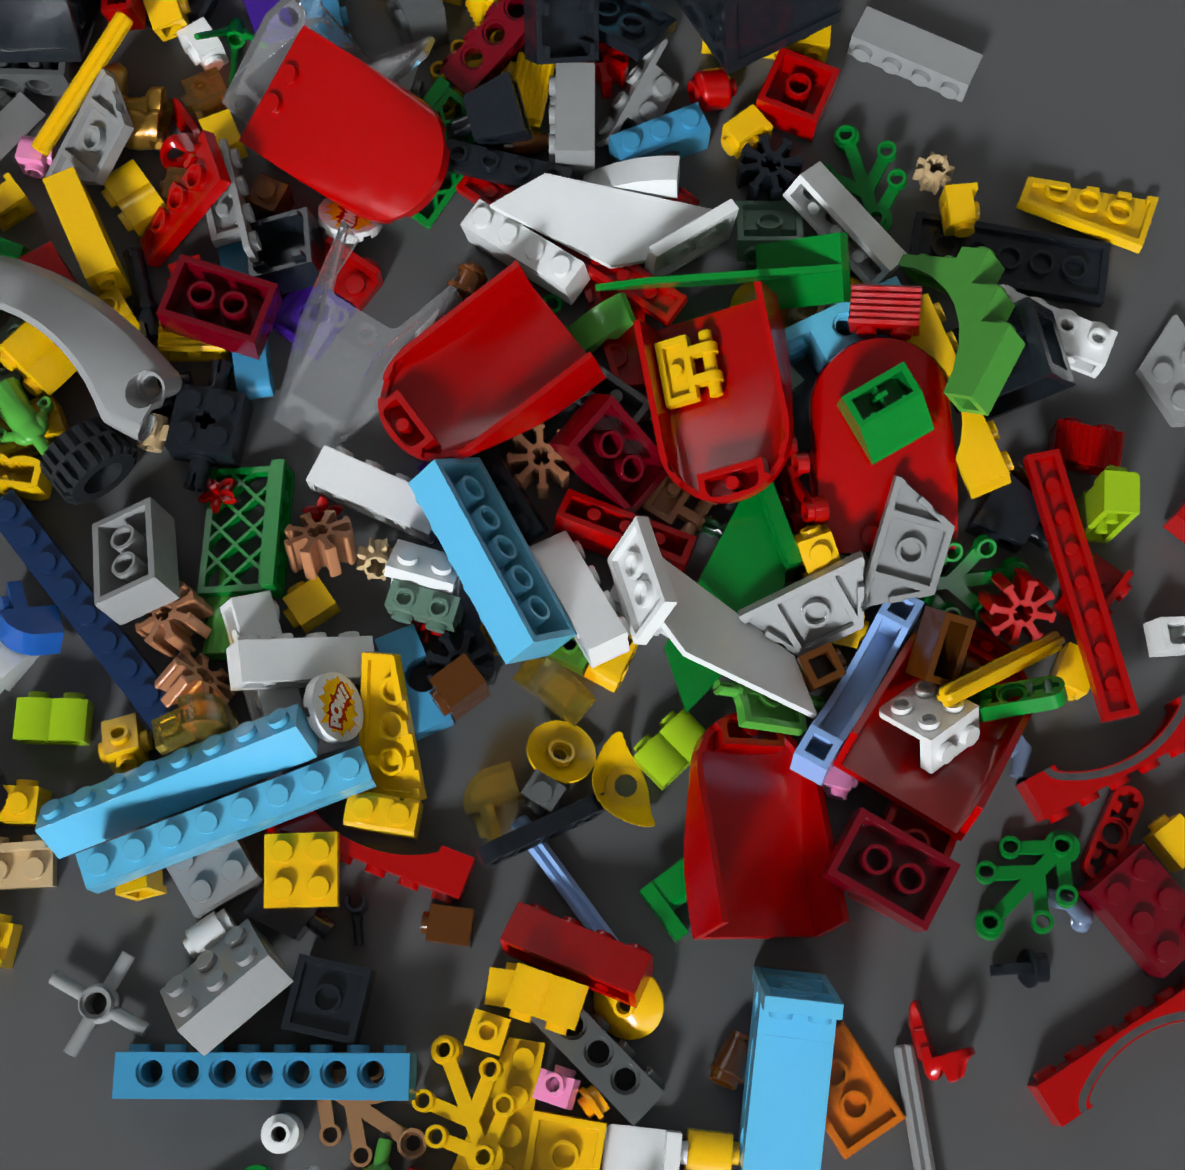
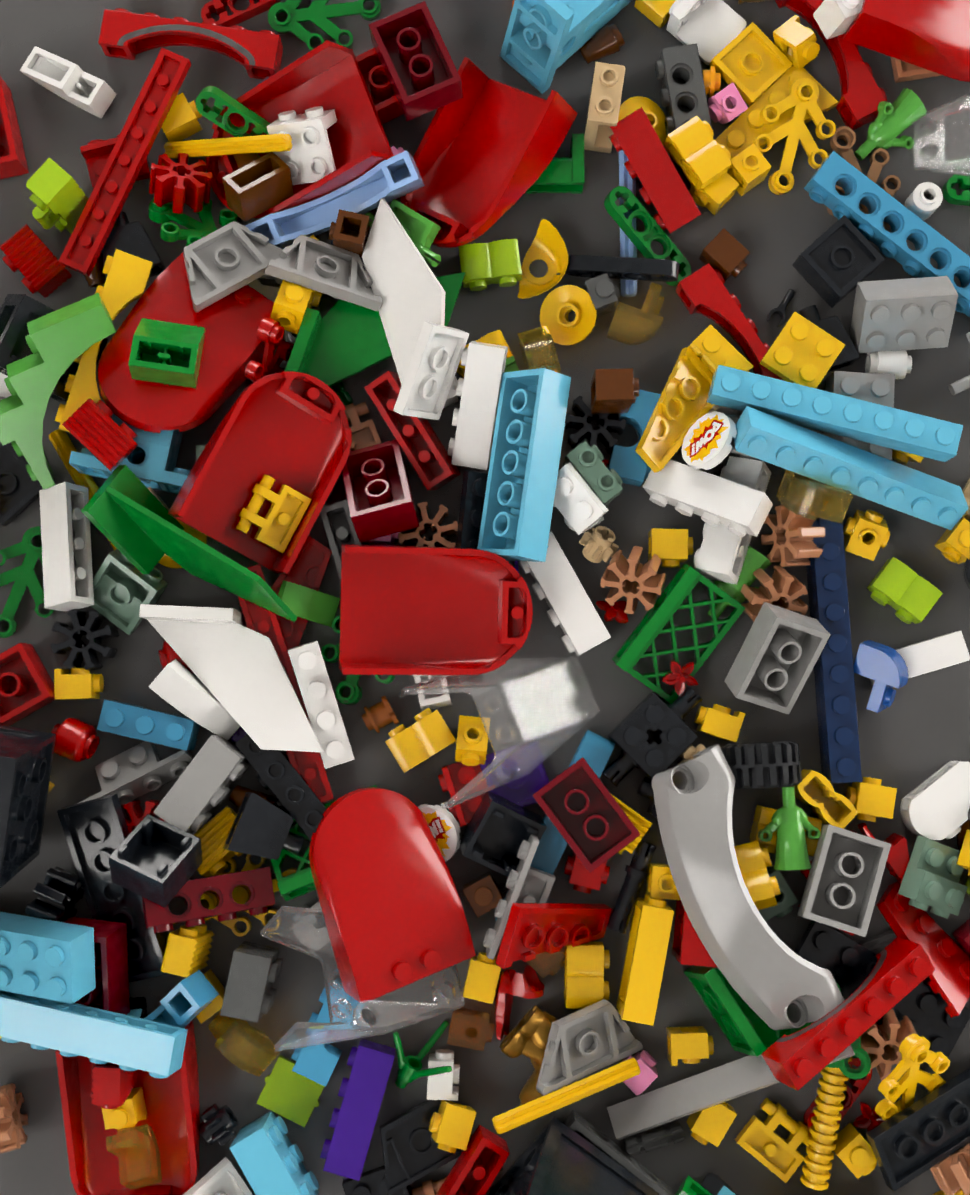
camera: 145 degrees left, 10 degrees up
(155, 479) = (719, 722): none -> yellow brick
(372, 304) = (471, 741): none -> yellow brick
(416, 283) = (420, 740): none -> yellow brick
(539, 890) = (651, 233): none -> green beam
(678, 978) = (603, 106): none -> tan panel

